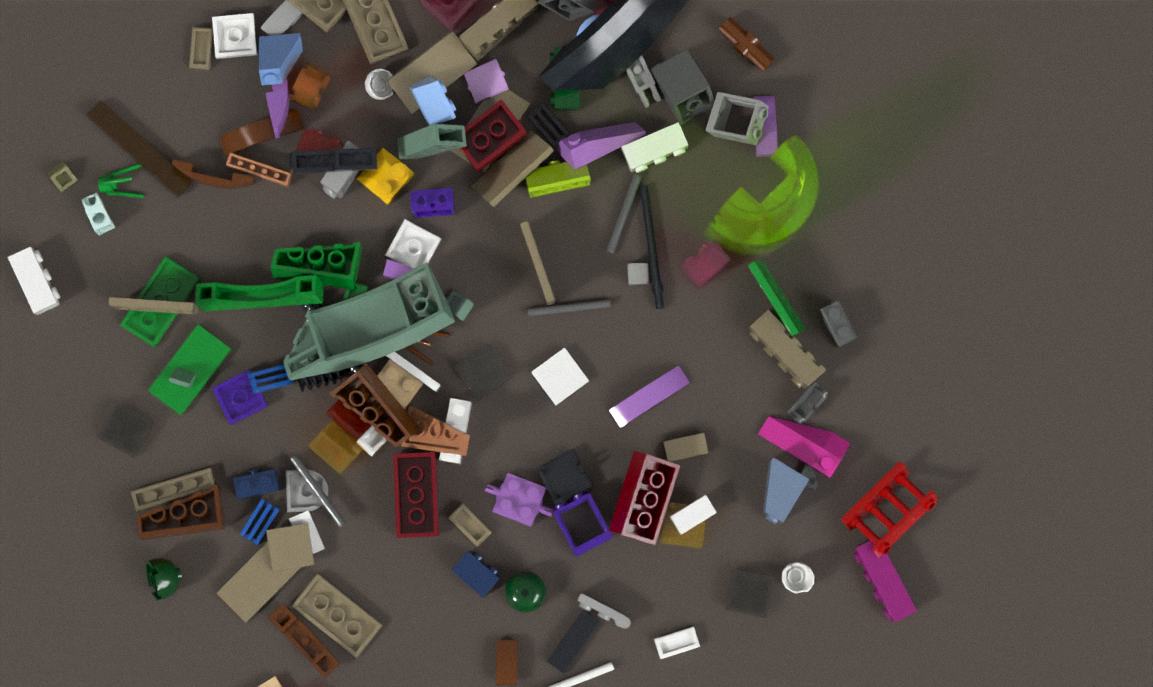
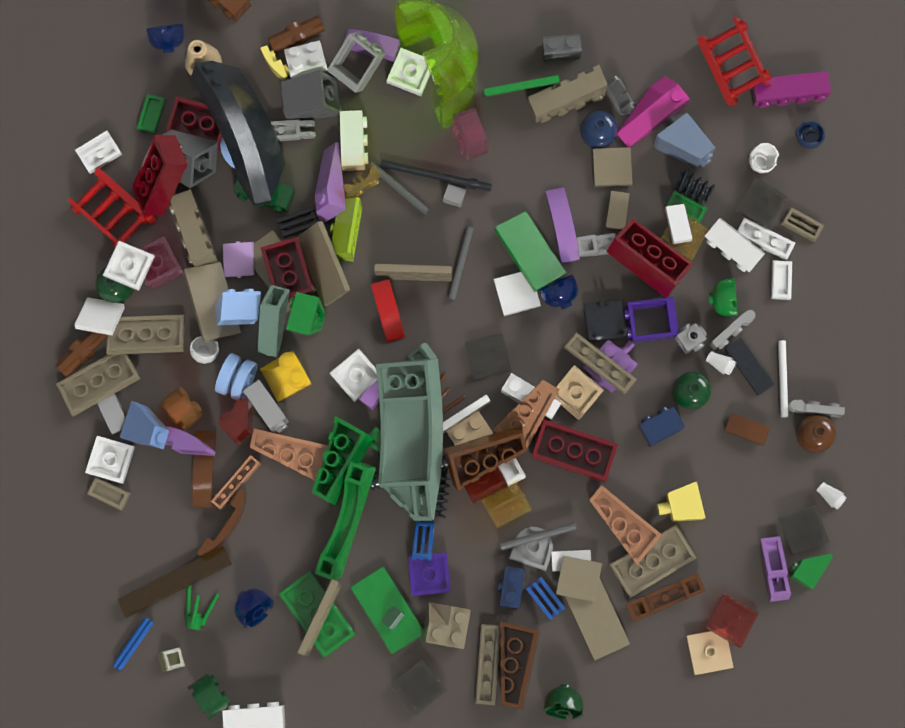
camera: 65 degrees left, 5 degrees down
(39, 227) = (208, 695): none -> dark green brick
(63, 133) = (133, 643): none -> blue axle
(97, 214) = (217, 639): light aqua leg -> none
(141, 235) = (252, 607): none -> clear blue cylinder
(194, 433) = (446, 625): none -> dark tan slope
(310, 213) = (290, 451): none -> nougat wing
(333, 160) = (255, 410): black slope -> none
(361, 577) = (629, 528): none -> nougat wing
(362, 127) = (235, 376): none -> light blue wheel
(404, 624) = (683, 504): none -> light yellow torso
(426, 201) = (326, 334): dark purple window -> none
(443, 172) = (306, 314): none -> green wedge
(470, 525) = (616, 417): dark tan tile -> none
(478, 475) = (577, 392): none -> tan plate
(490, 253) = (388, 310): none -> red slope
(516, 488) = (600, 363): none -> dark tan tile
(565, 612) = (721, 363): none -> white cone
(572, 565) = (686, 342): none -> light grey brick
(574, 420) = (560, 293): none -> clear blue cylinder
(607, 373) = (530, 251): none -> tile
(614, 179) = (356, 189): none -> clear yellow piece
(633, 590) = (724, 297): none -> green cylinder
(640, 437) = (594, 245): none -> light grey slope
(693, 580) = (734, 245): none -> white brick
(702, 41) = (277, 67): none -> light yellow slope
(714, 610) = (766, 239): none -> white tile
(716, 524) = (692, 207): none -> green tile
(721, 65) = (305, 59): none -> white plate
(730, 425) = (612, 167): none -> dark tan tile
(739, 516) = (693, 186): none -> black piece
(744, 643) = (798, 230): none -> dark tan tile
(753, 175) = (409, 72): none -> white plate
(765, 396) = (598, 129): none -> dark blue cylinder
(842, 617) = (810, 134): none -> dark blue hair

